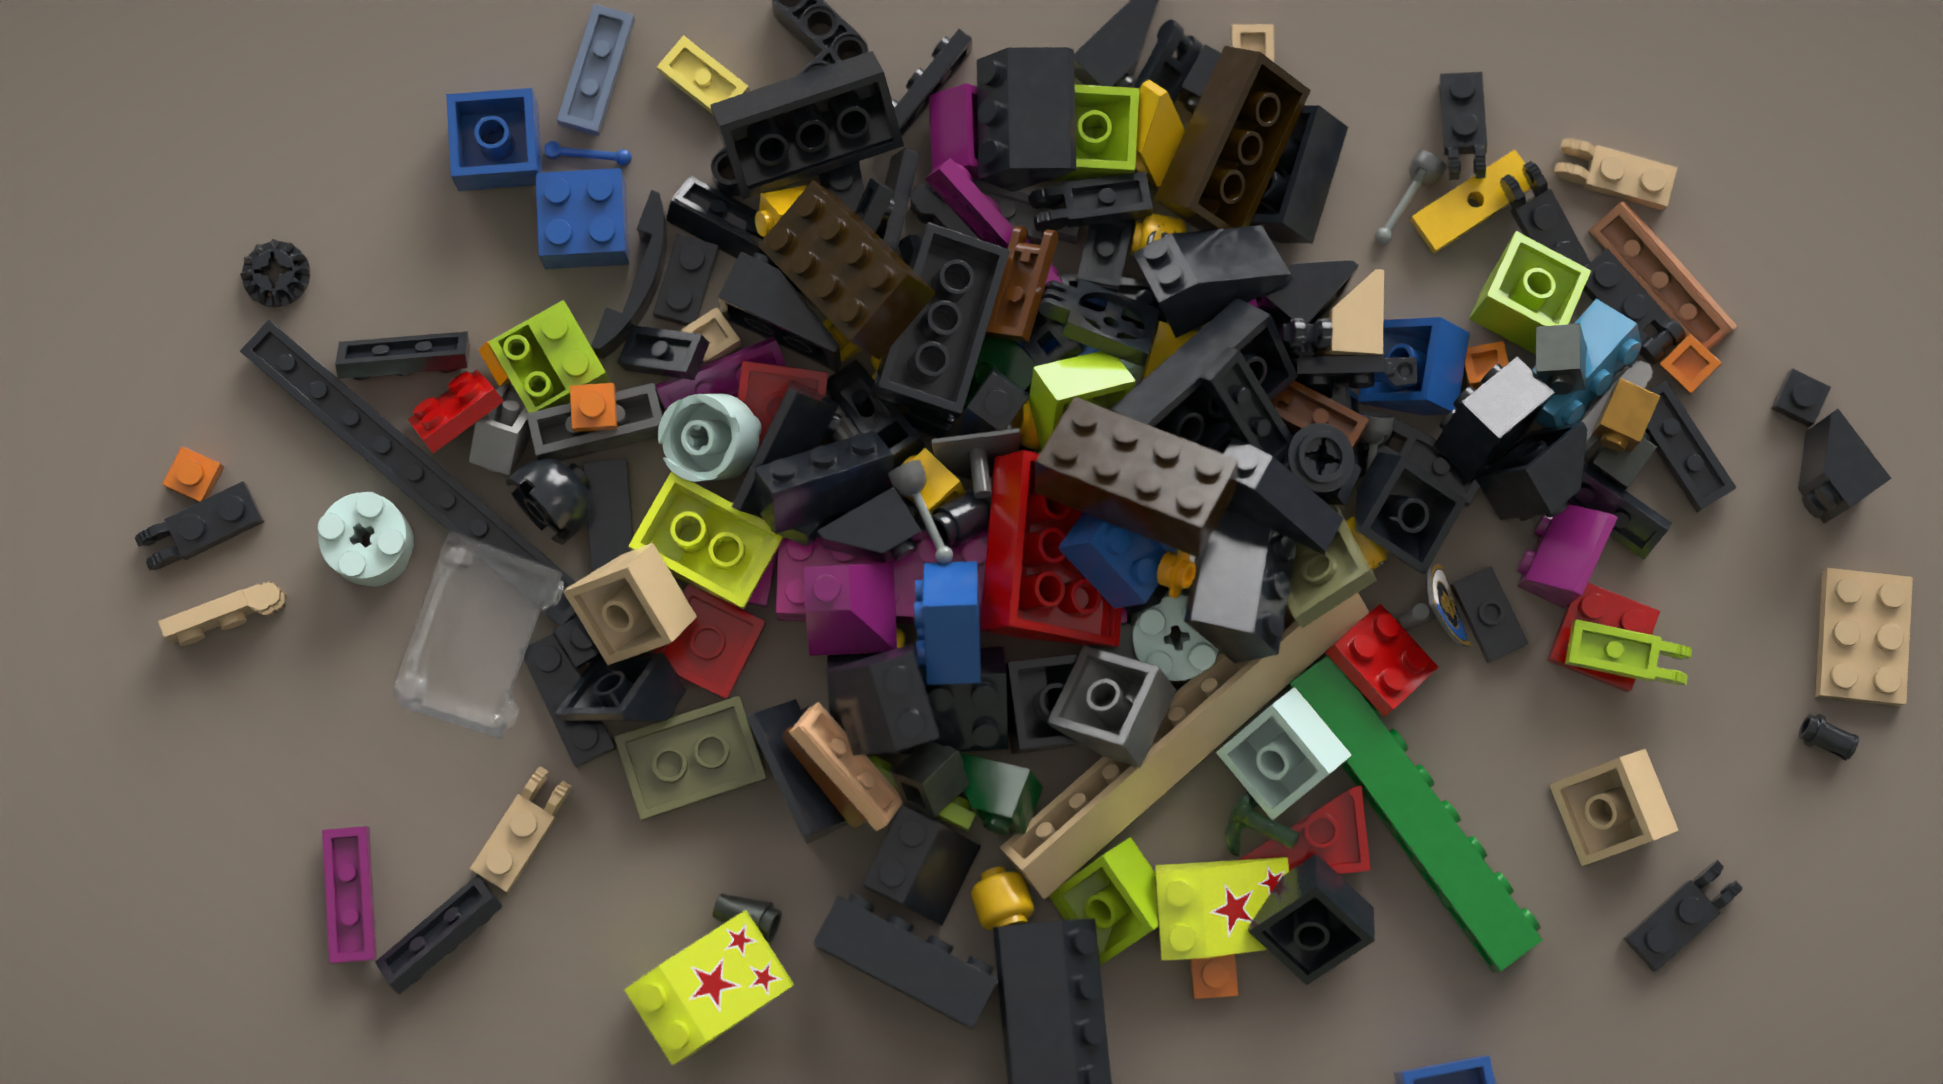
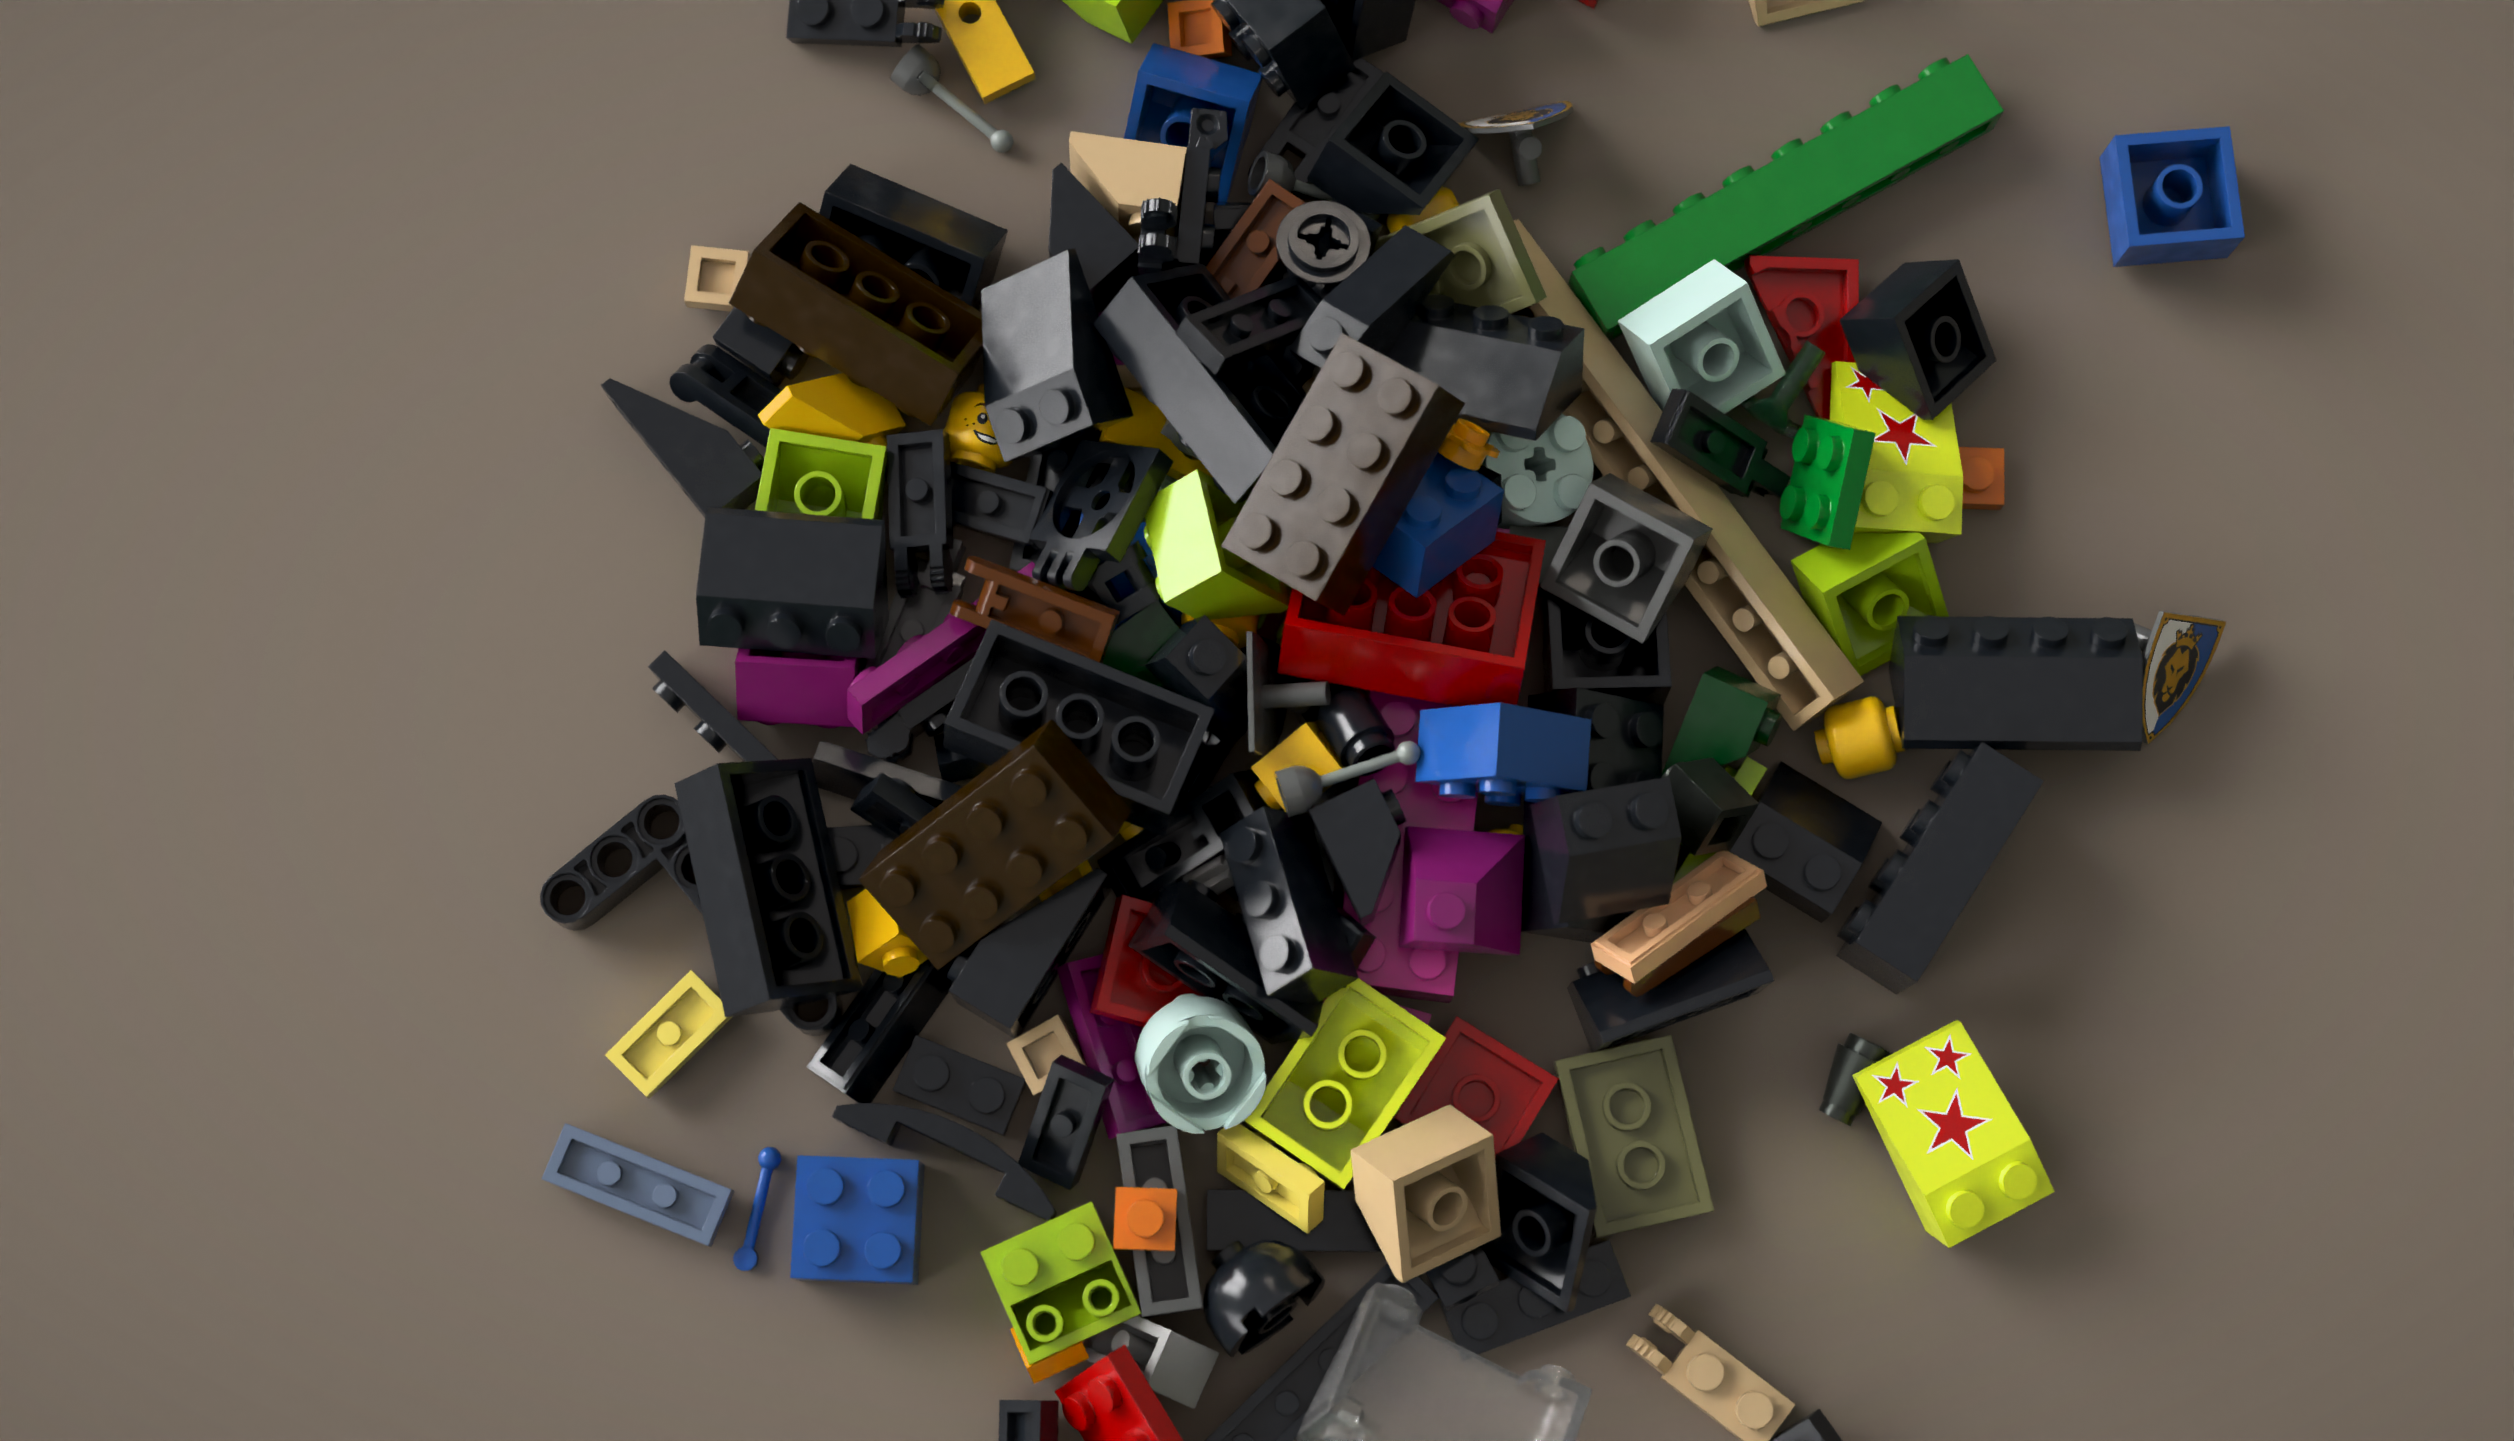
camera: 80 degrees left, 0 degrees up
(494, 139) = (728, 1334): blue brick -> none
(639, 493) = (1271, 1176): none -> light yellow plate
(1187, 854) = (1826, 481): none -> green plate
(1208, 770) = (1716, 446): none -> black hinge
(1382, 660) = (1585, 209): red plate -> none
(1489, 614) = (1529, 71): black plate -> none

